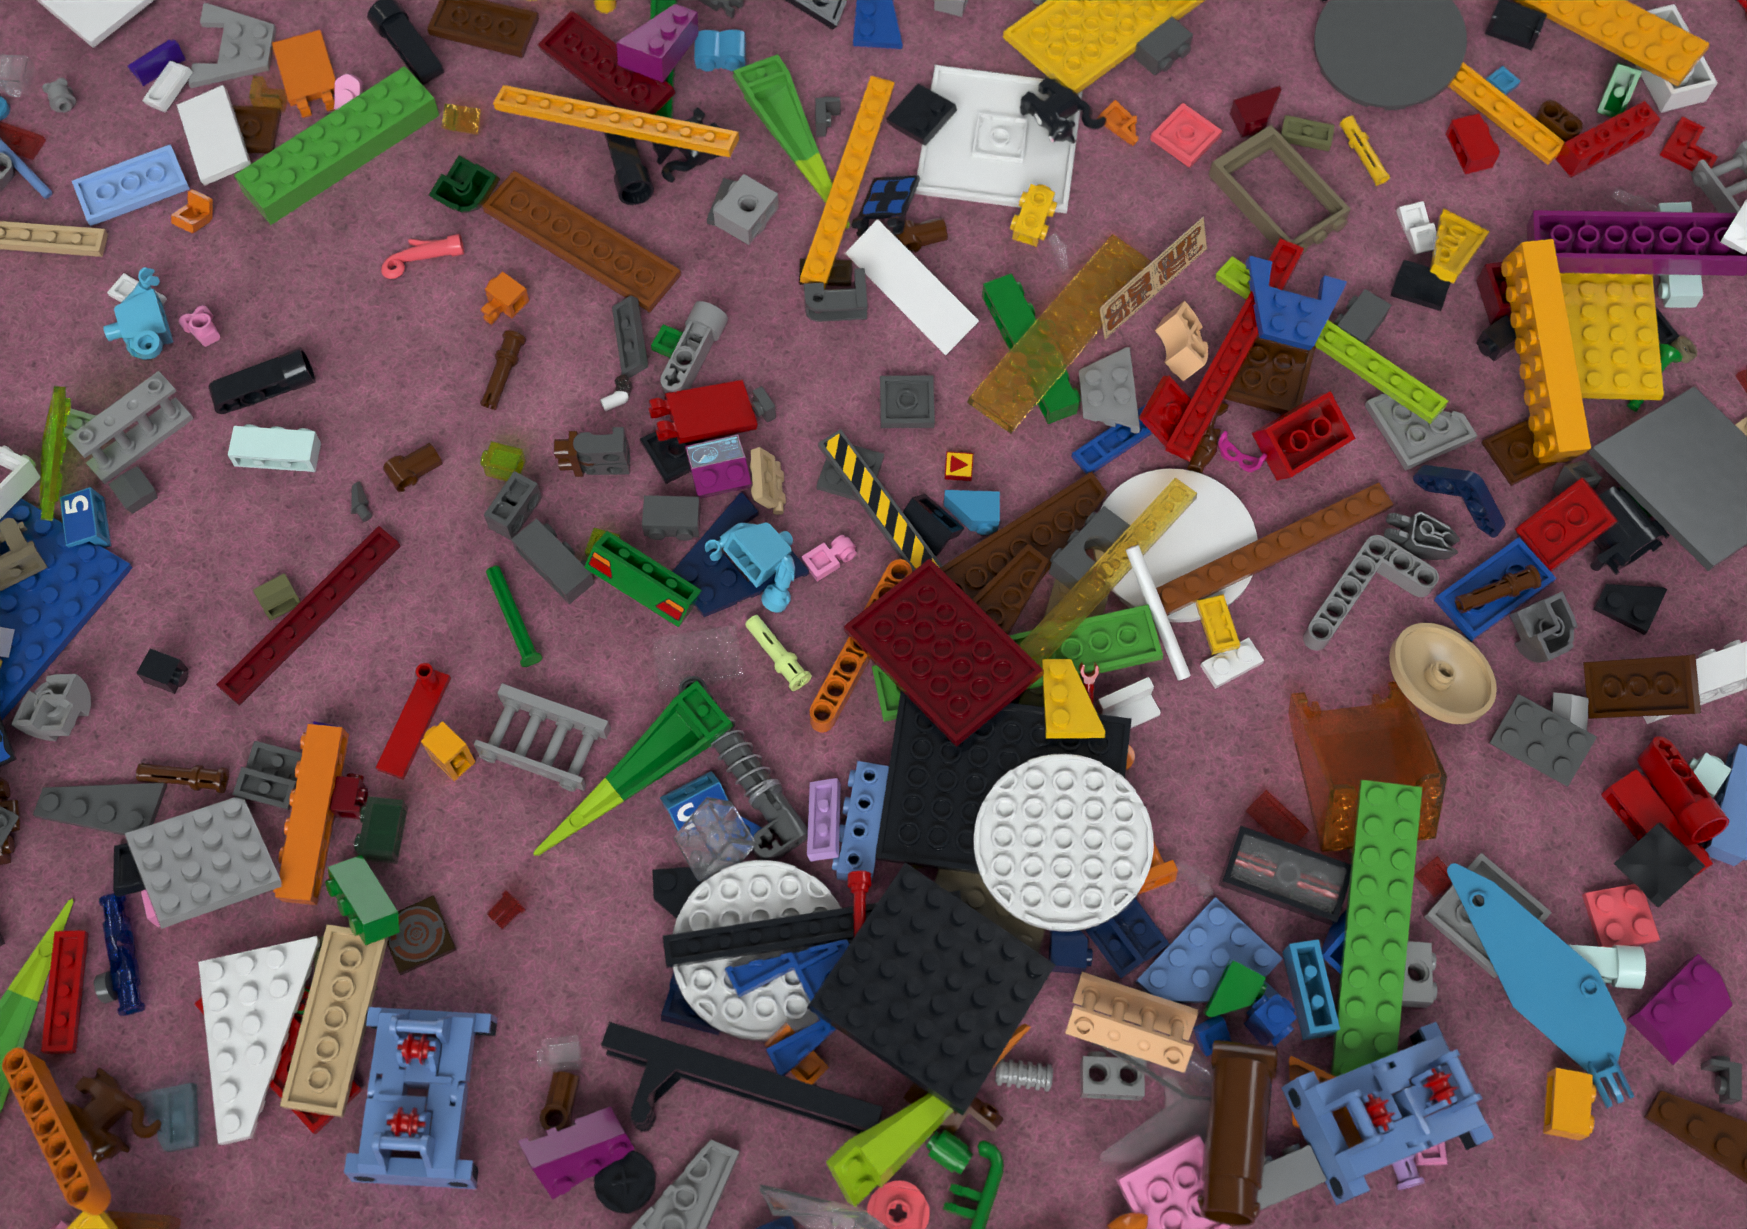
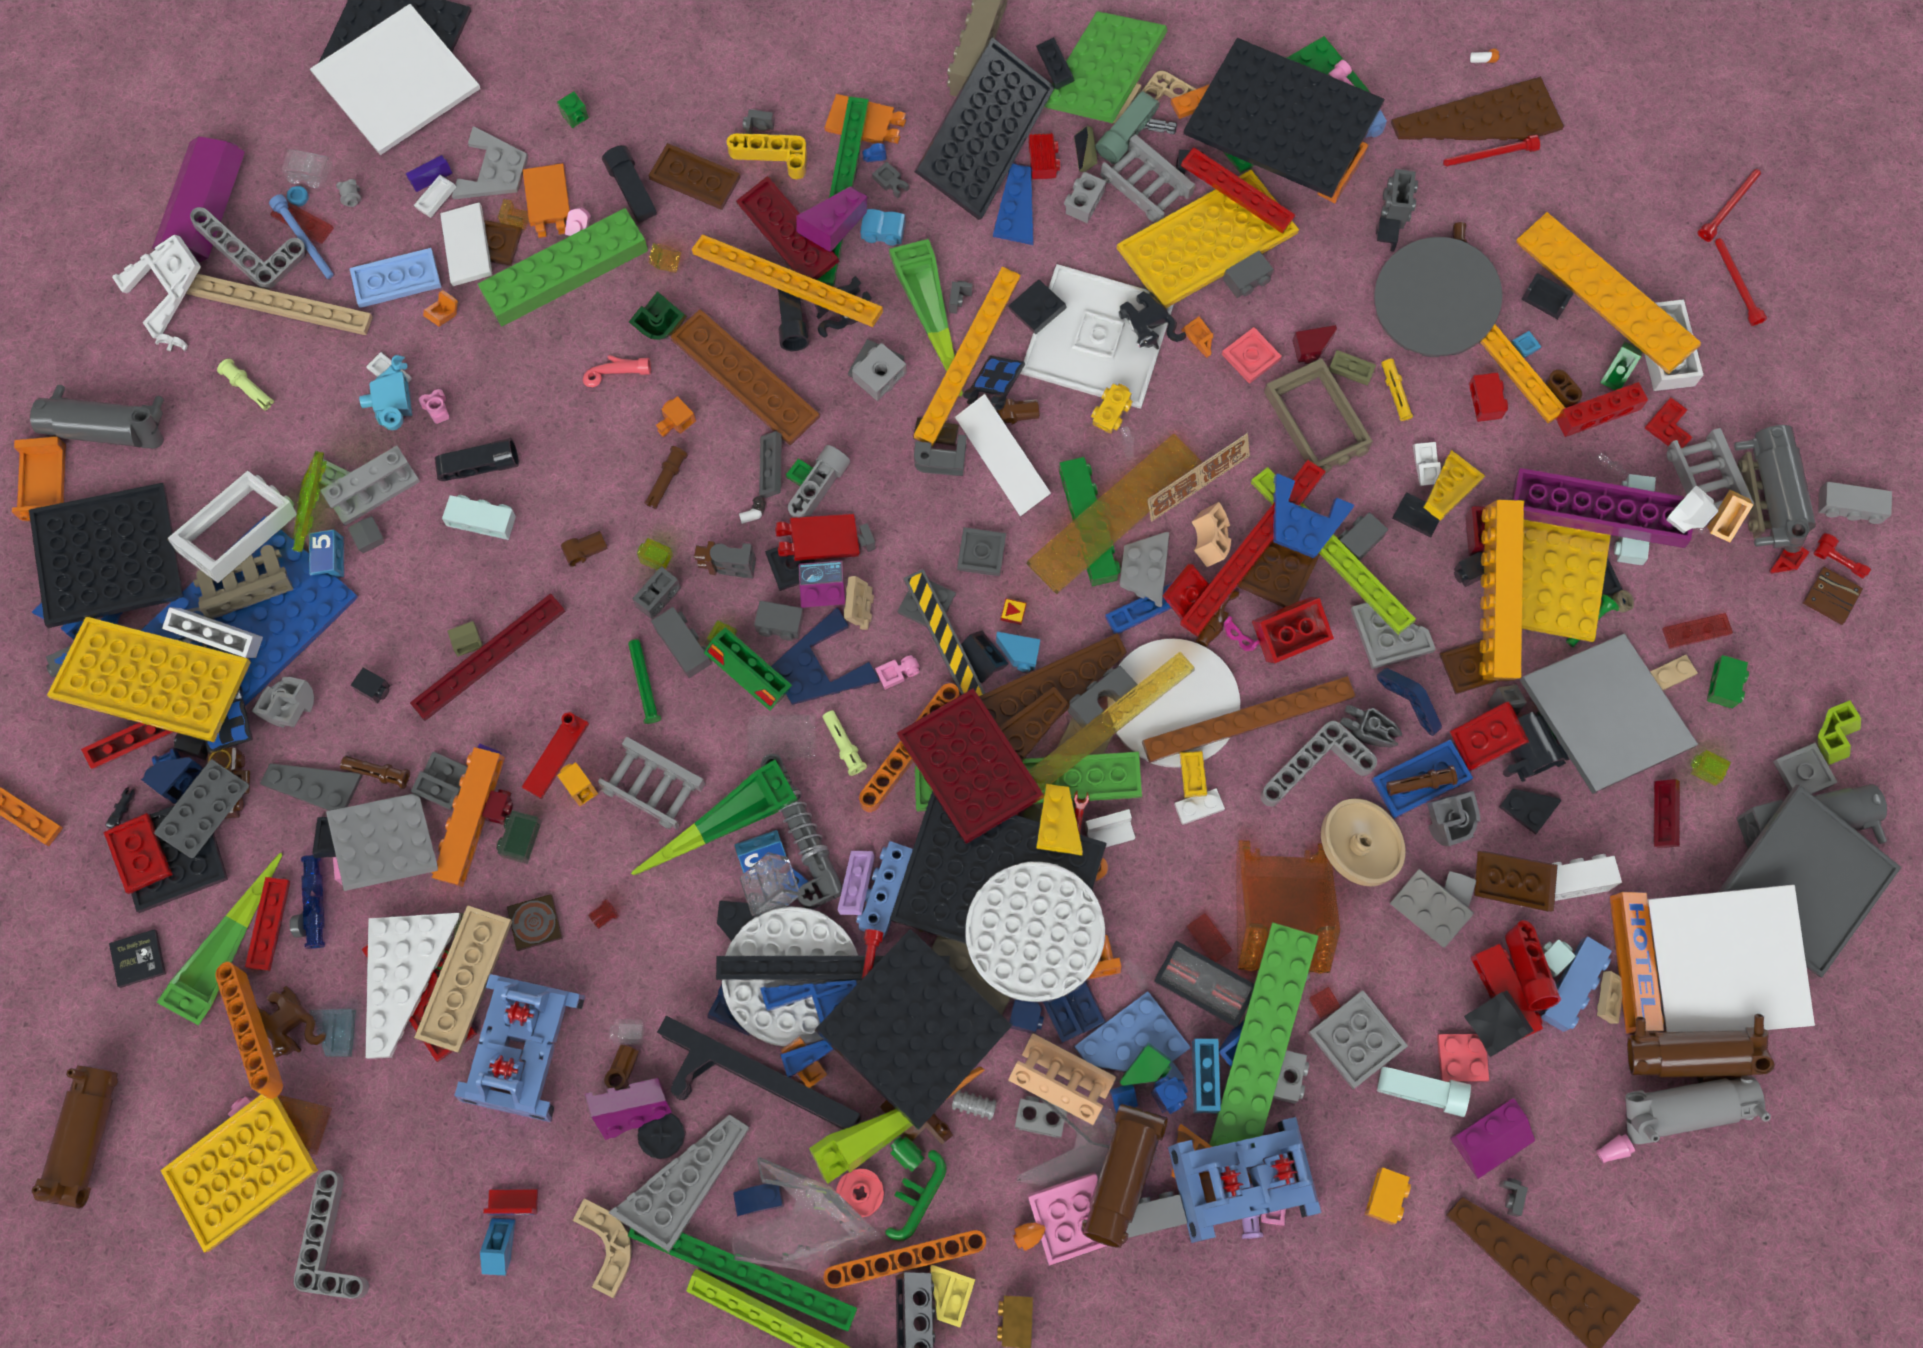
camera: 10 degrees right, 5 degrees up
(359, 502) = (539, 570): dark grey bar -> none
(362, 900) = (496, 891): green brick -> none
(759, 555) = (841, 663): medium azure torso -> none
(1158, 612) = (1146, 759): white piece -> none
(1547, 981) = (1391, 1098): dark azure wing -> none

